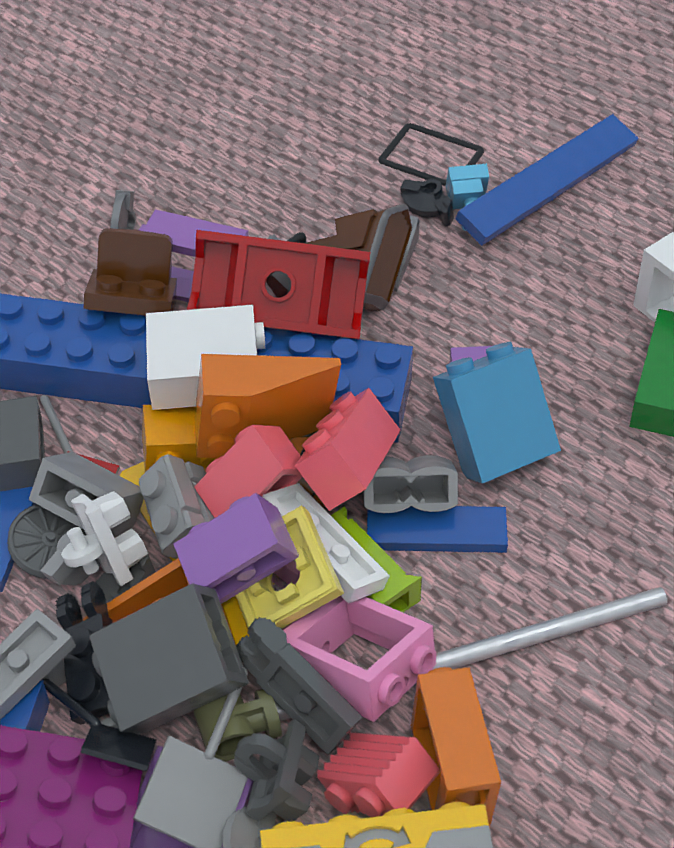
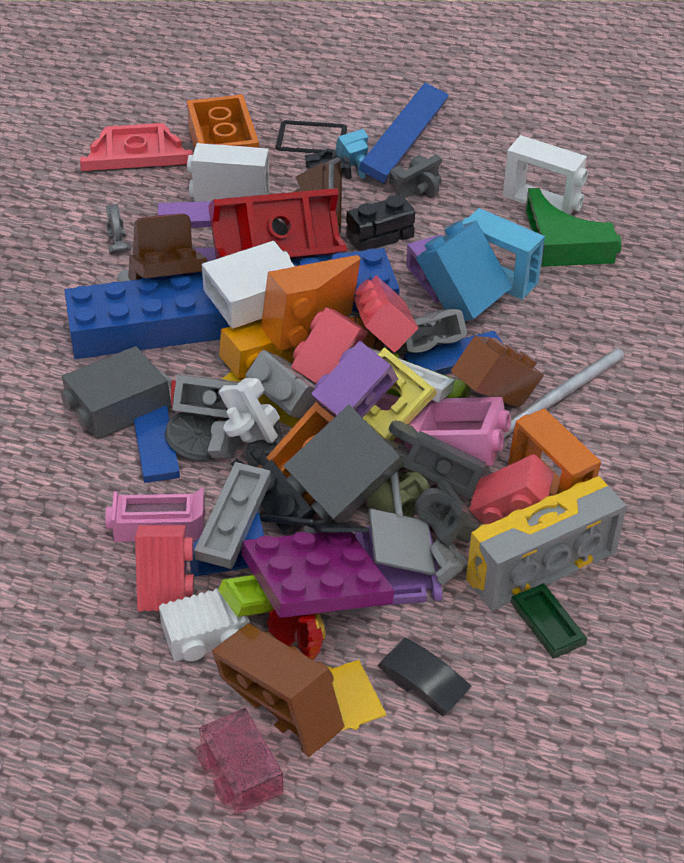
camera: 25 degrees left, 5 degrees down
(206, 117) = (135, 147): none -> coral wing
(281, 190) = (227, 172): none -> white brick
(310, 129) = (221, 122): none -> orange brick
(440, 305) = (380, 223): none -> black brick
(451, 578) = (497, 370): none -> dark orange wedge
(529, 252) = (419, 178): none -> dark grey hips
(577, 396) = (519, 240): none -> medium azure window

